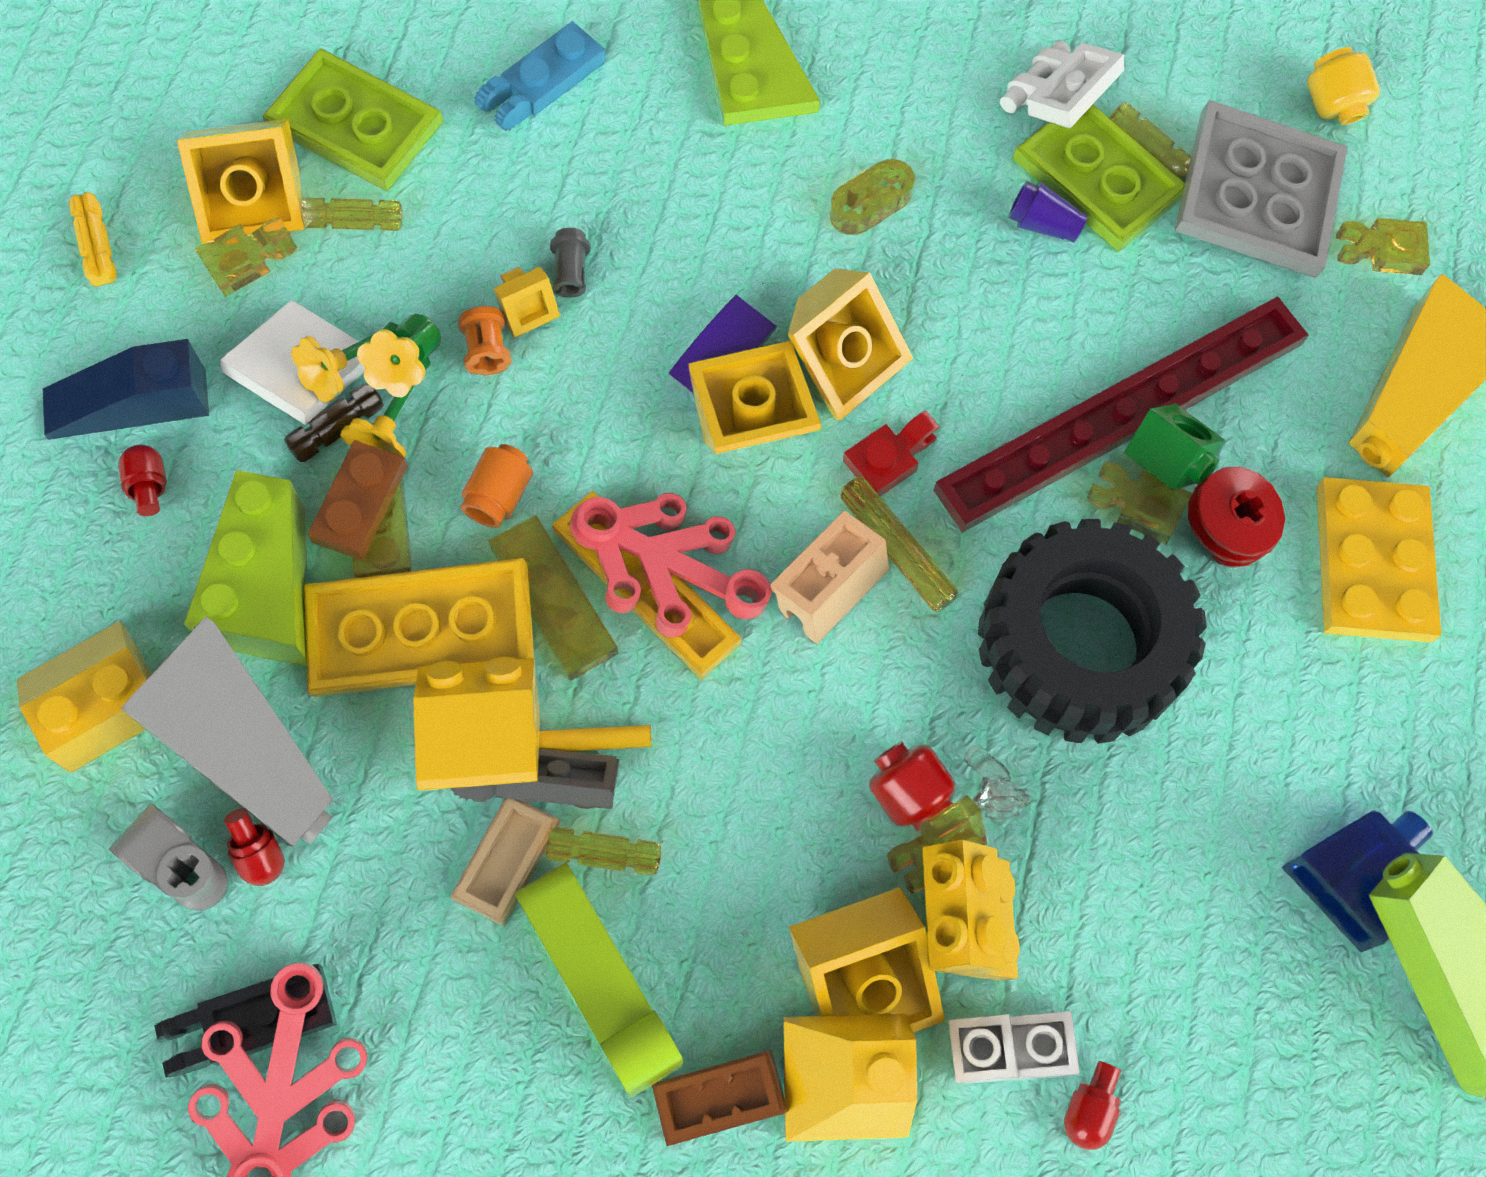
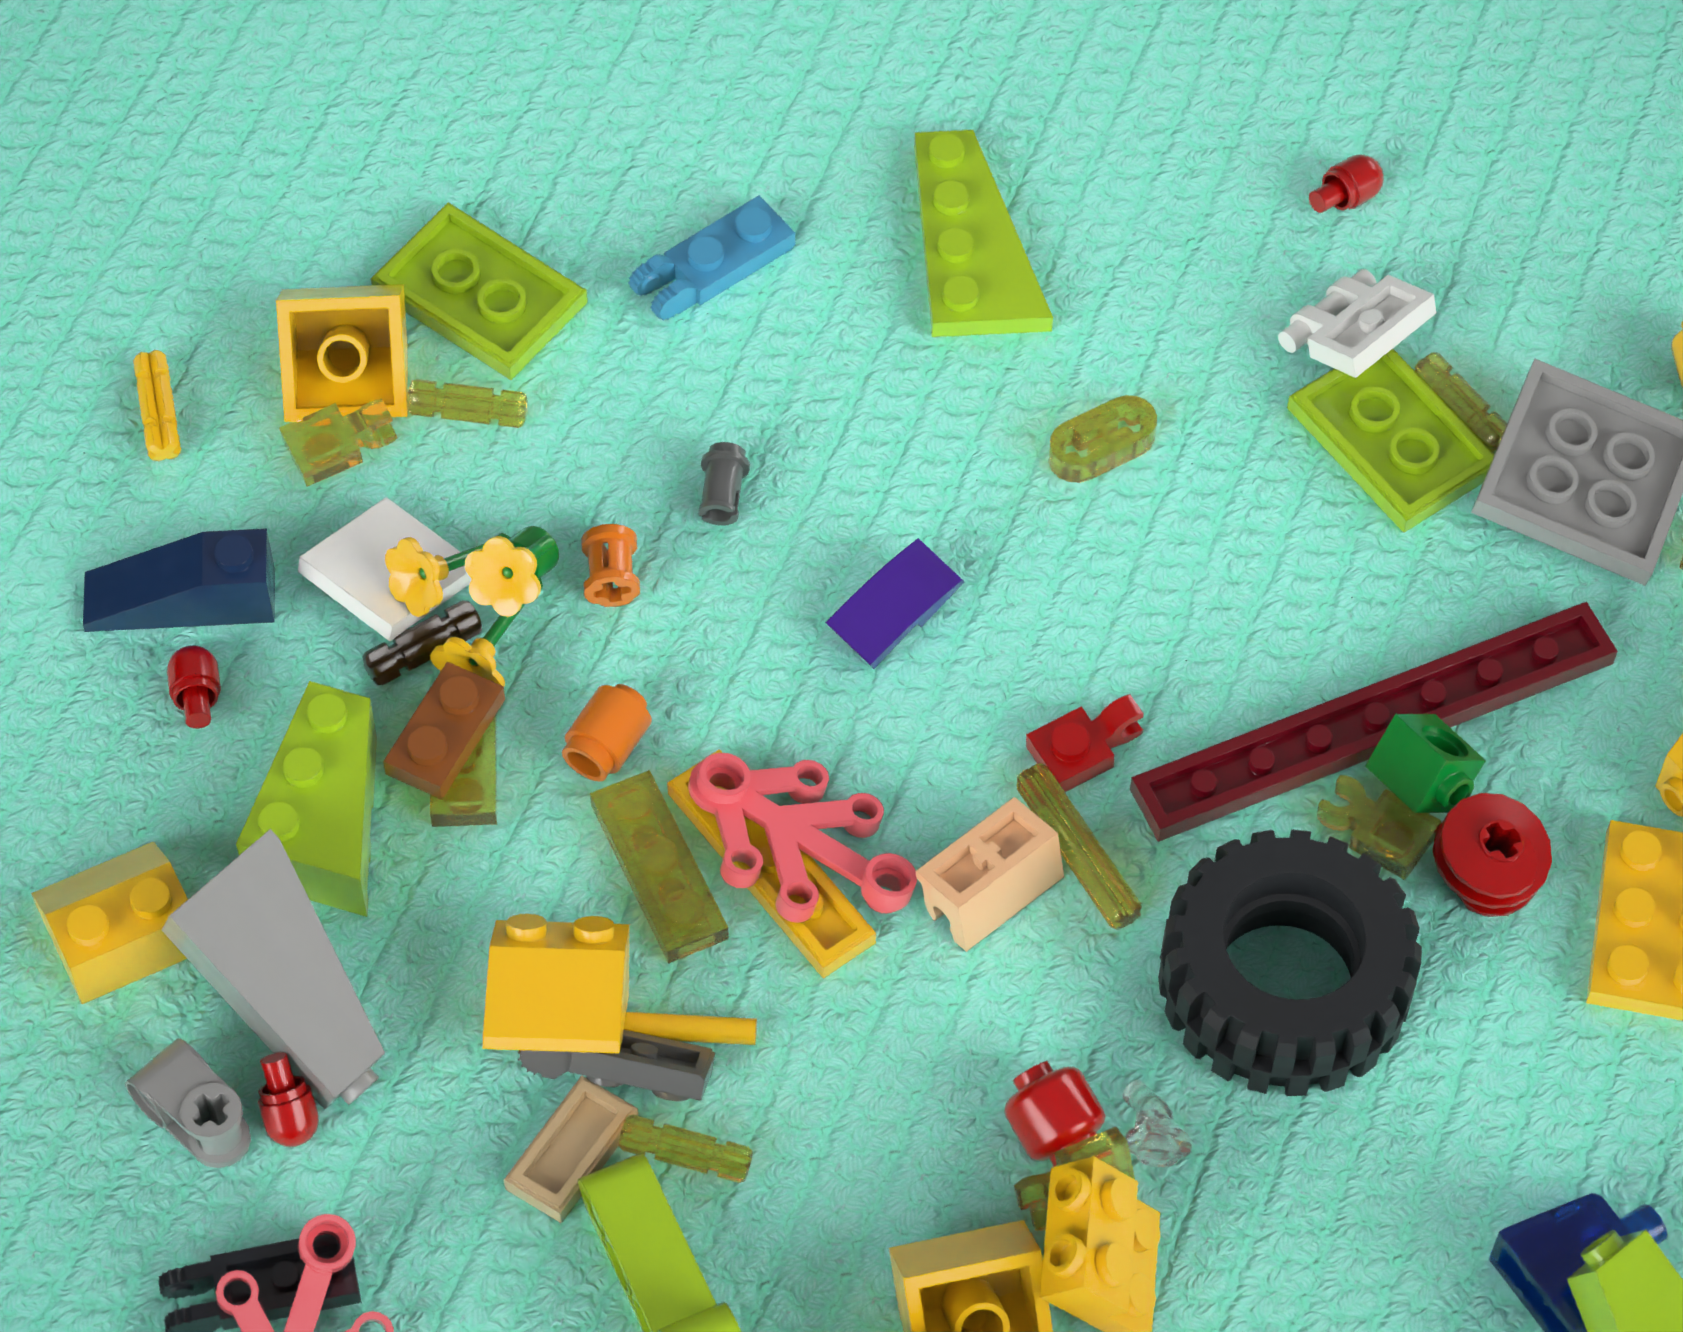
camera: 10 degrees right, 10 degrees down
(388, 625) = (455, 876): yellow tile -> none
(526, 300) = (665, 522): yellow tile -> none
(752, 397) = (921, 657): yellow slope -> none
(847, 339) = (1046, 604): yellow slope -> none
(1046, 212) = (1315, 477): dark purple cone -> none

